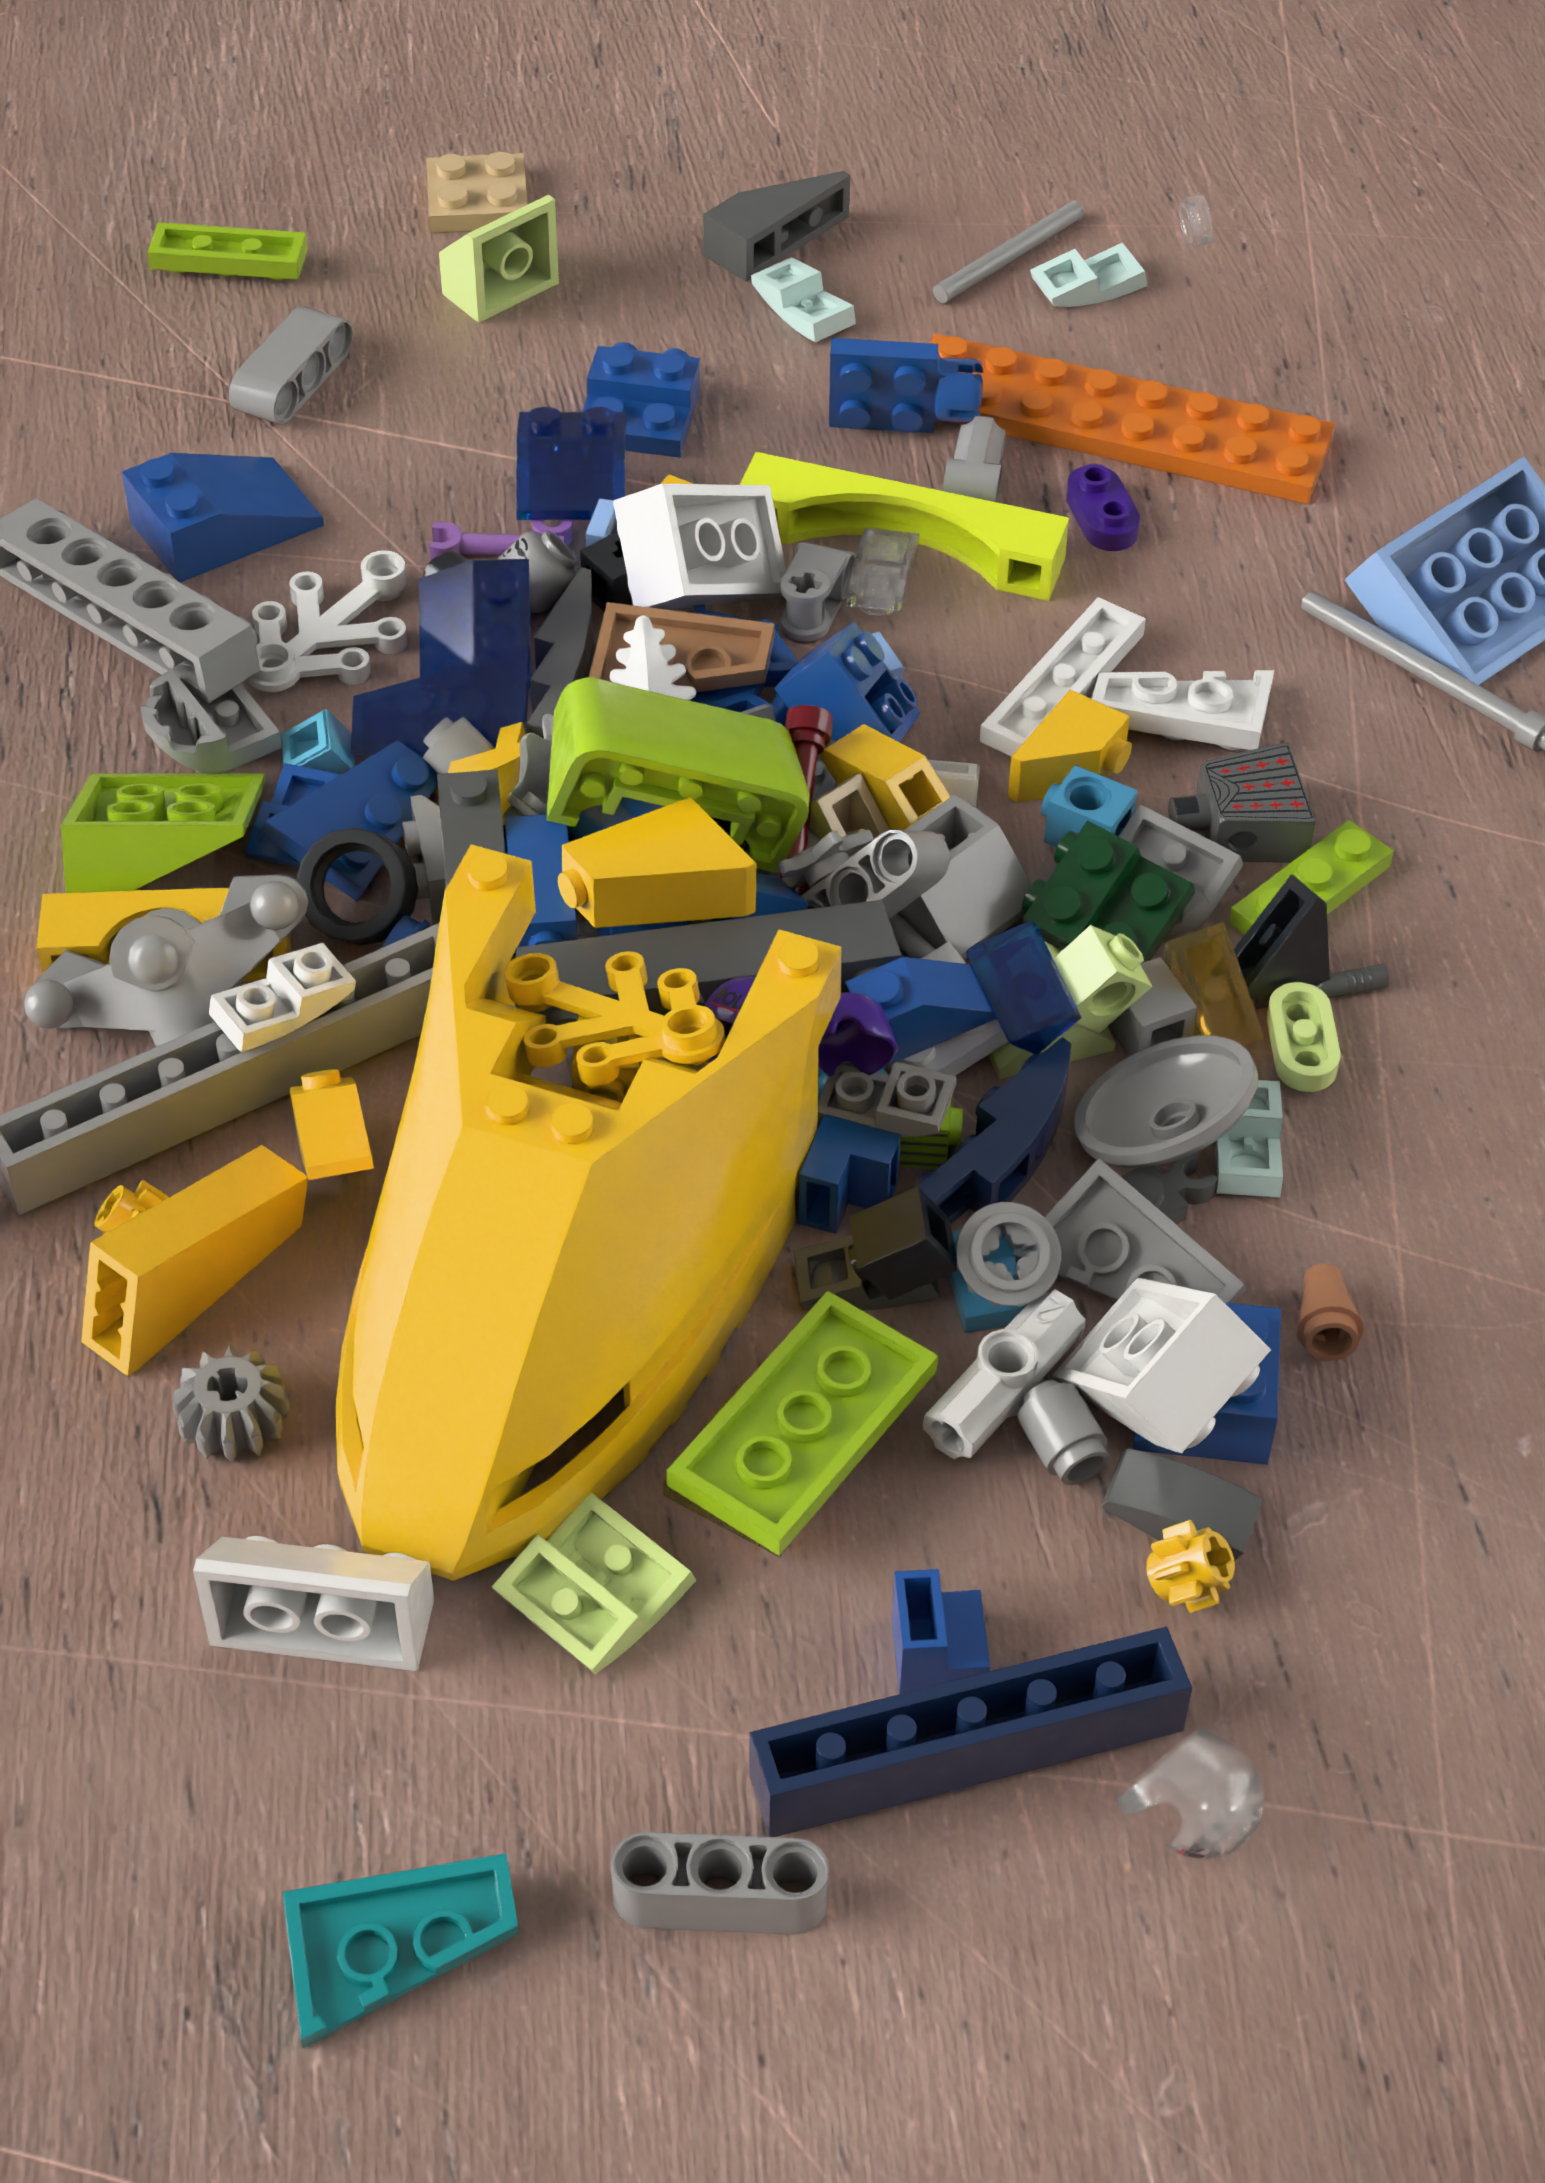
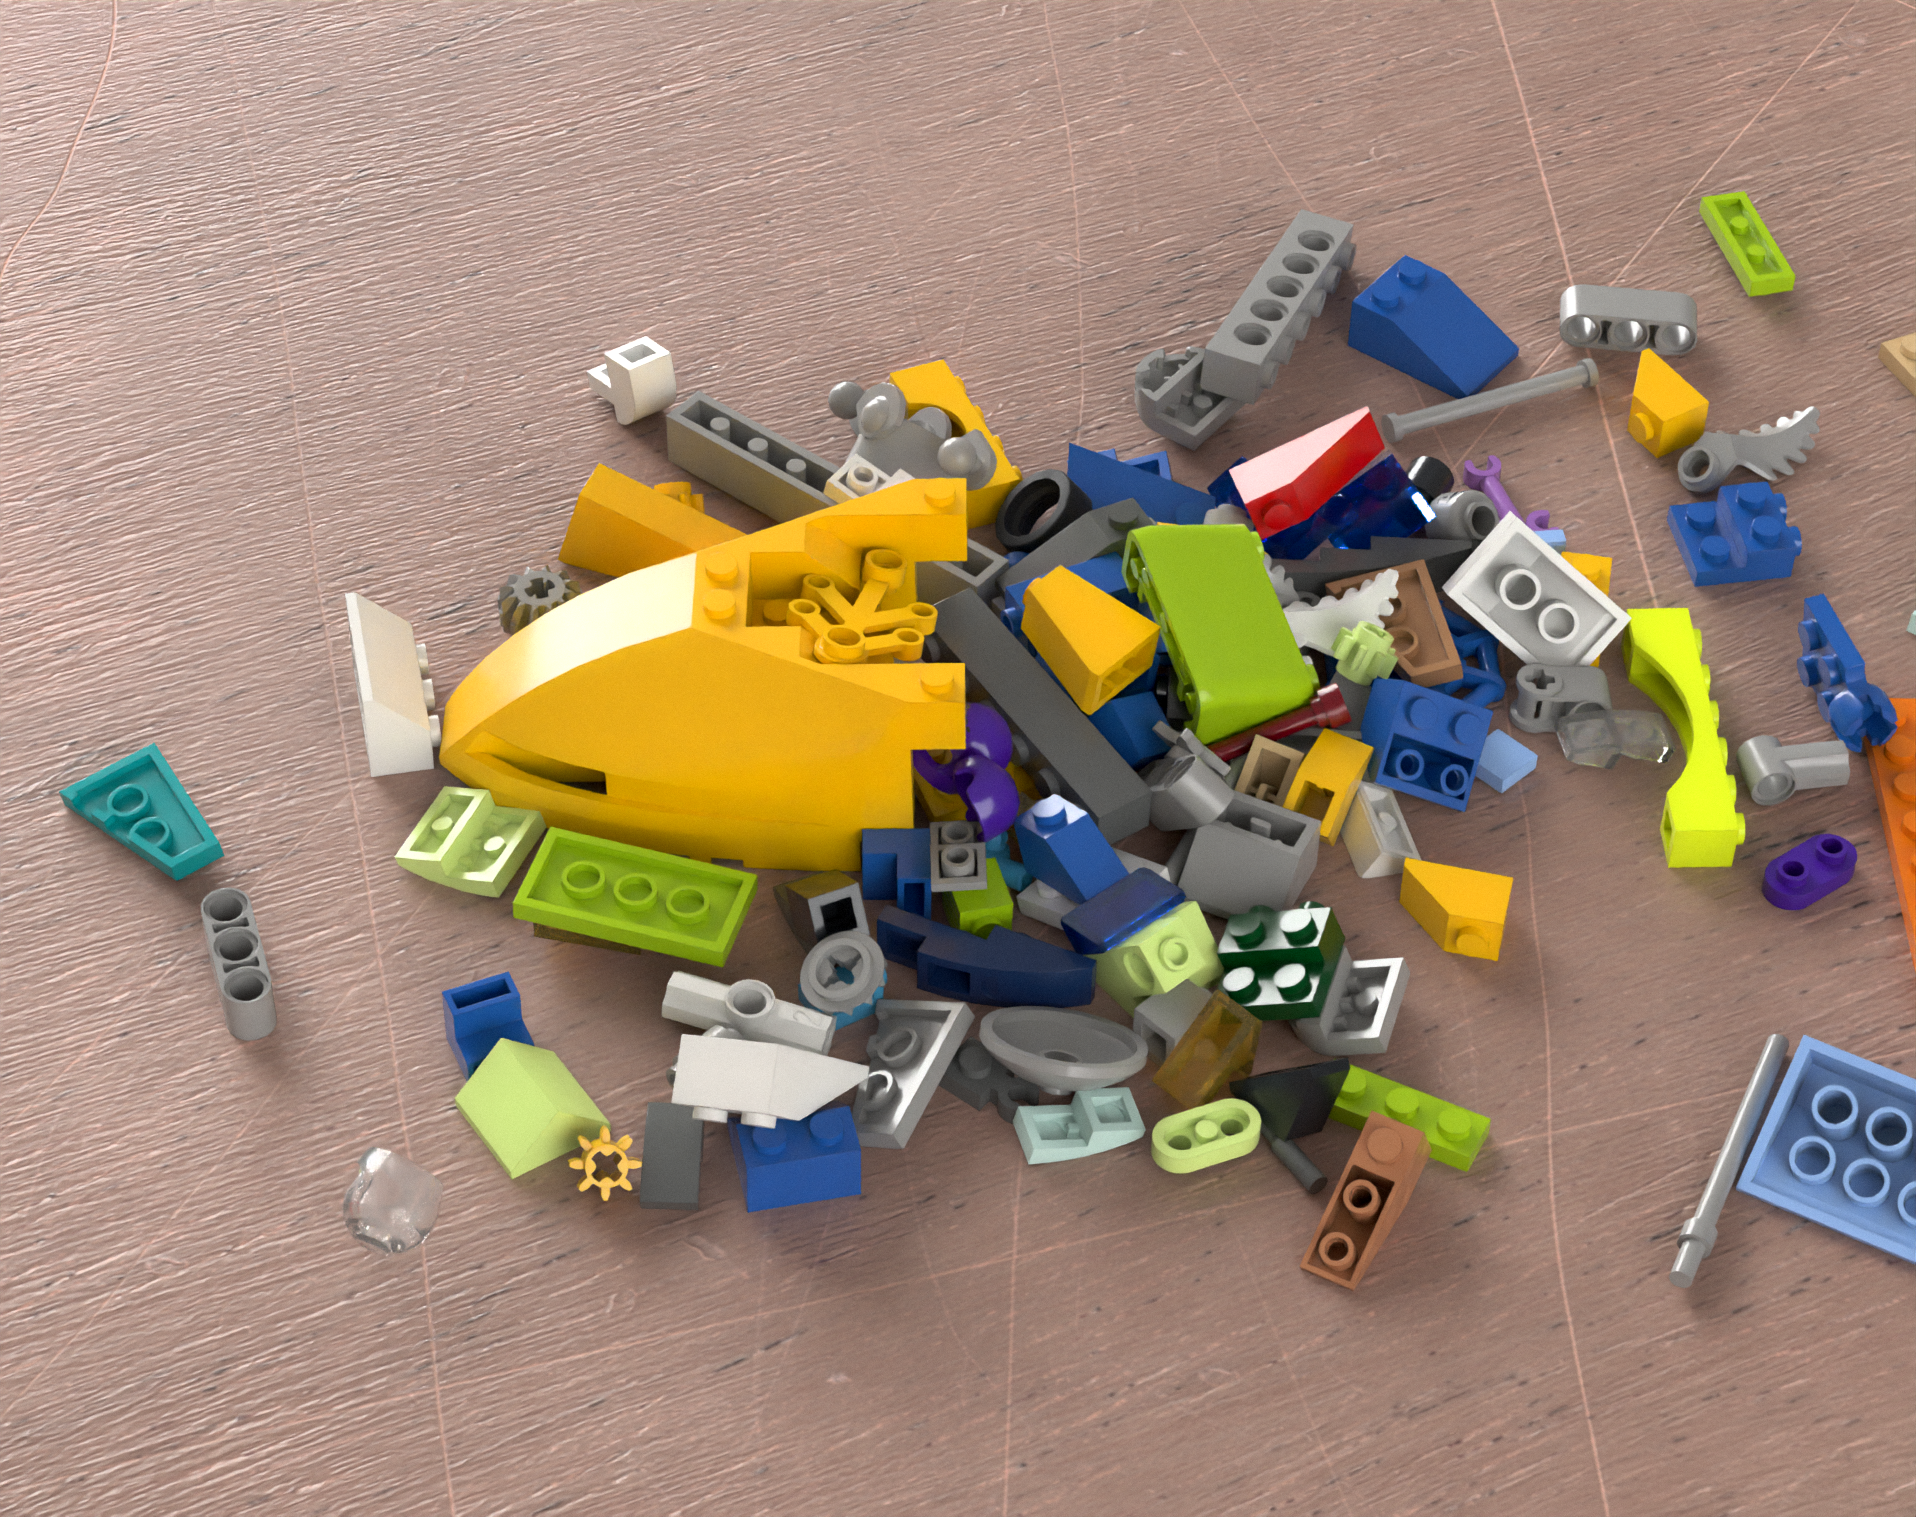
camera: 70 degrees right, 5 degrees down
(149, 824) = (1059, 395): lime slope -> none
(285, 663) = (1283, 420): white plant -> none
(319, 744) = (1201, 467): medium azure slope -> none
(344, 423) = (1395, 426): none -> light grey bar
(430, 384) = (1664, 408): none -> yellow slope
(465, 657) = (1306, 472): none -> red slope
(503, 261) = (1851, 396): yellowish green slope -> none
(525, 349) = (1754, 451): none -> light grey plant
(569, 462) = (1605, 507): clear blue slope -> none
(725, 684) = (1364, 653): none -> yellowish green gear
(968, 1731) = (402, 1062): dark blue brick -> none
(1058, 1610) = (527, 1107): none -> yellowish green slope
(1083, 798) = (1388, 928): dark azure brick -> none
(1087, 648) = (1569, 889): white plate -> none
(1200, 710) = (1568, 982): white wing -> none
(1250, 805) = (1464, 1043): dark grey torso -> none
(1328, 1317) = (901, 1208): nougat cone -> none
(1429, 938) = (1367, 1200): none -> nougat slope

